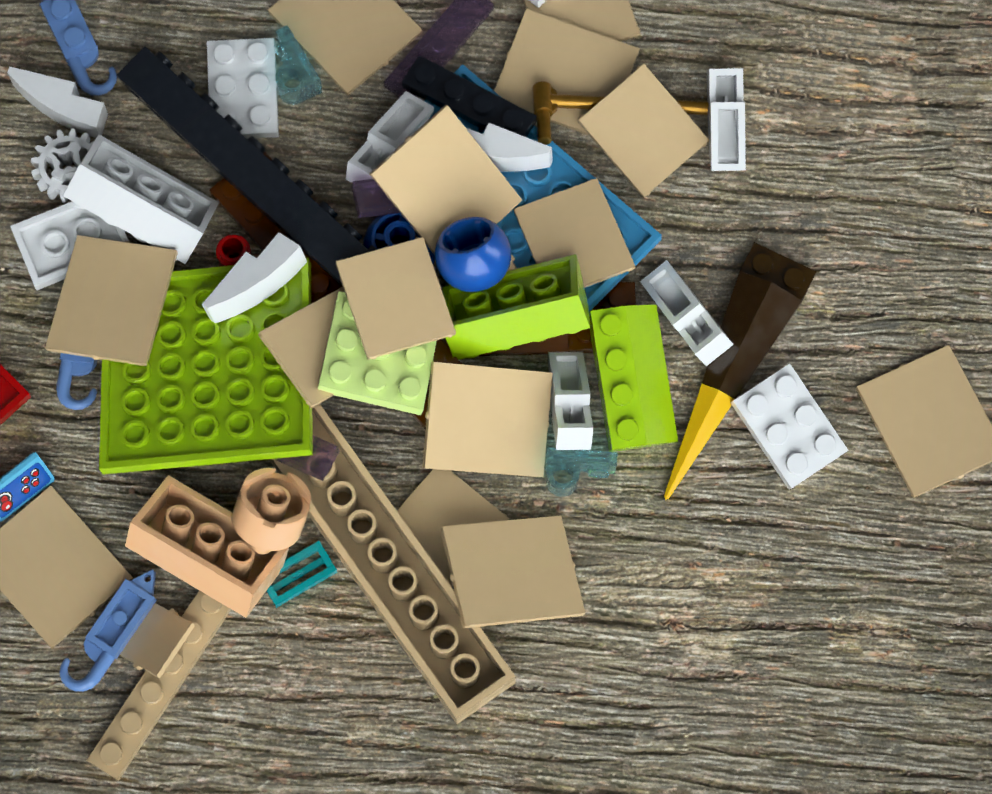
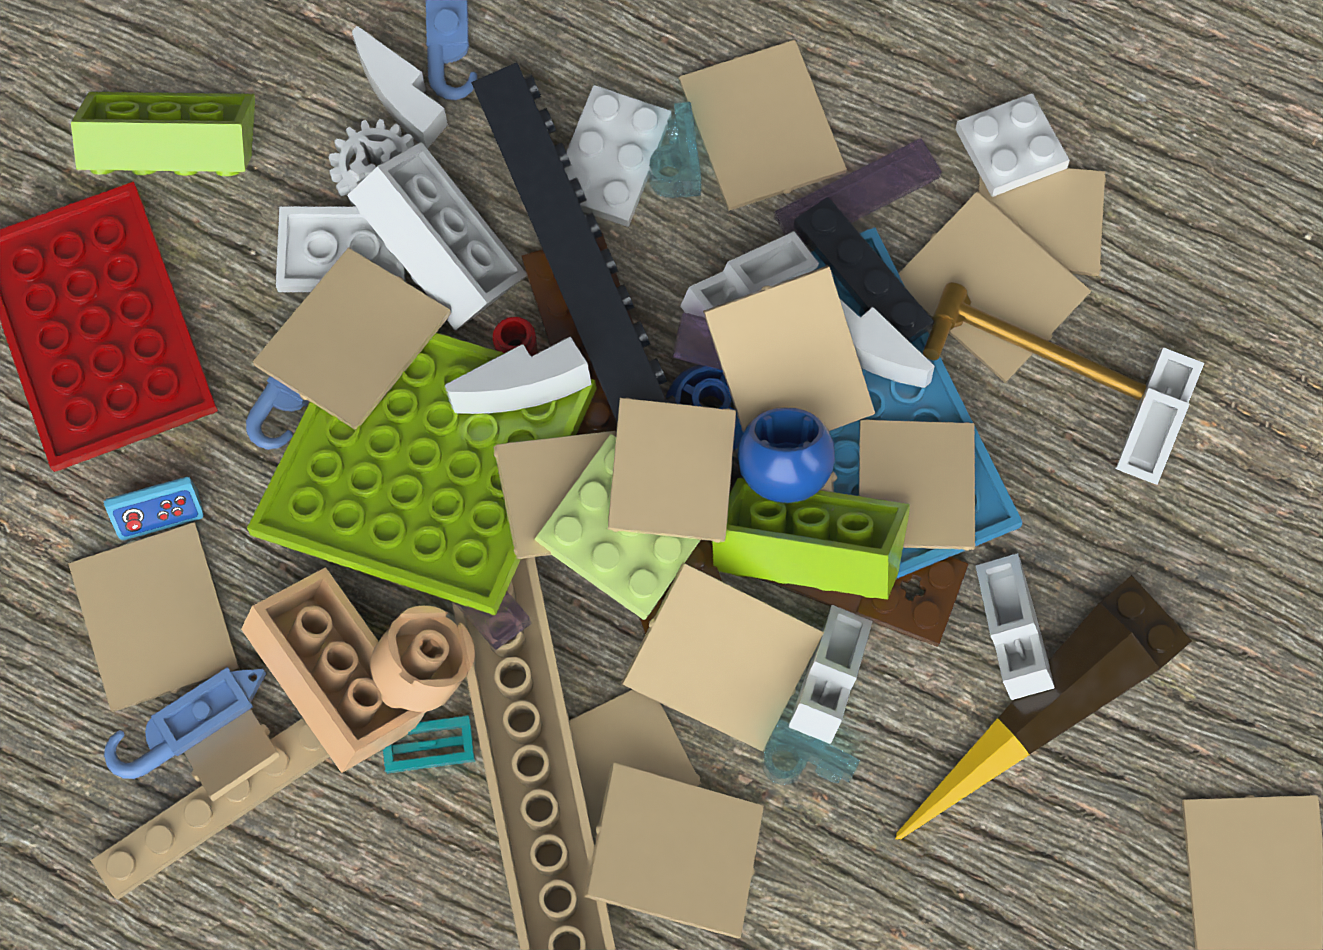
camera: 25 degrees right, 0 degrees up
(632, 377) = (917, 677): lime slope -> none
(643, 130) = (1054, 389): tan piece -> none
(789, 426) = (1081, 815): white plate -> none

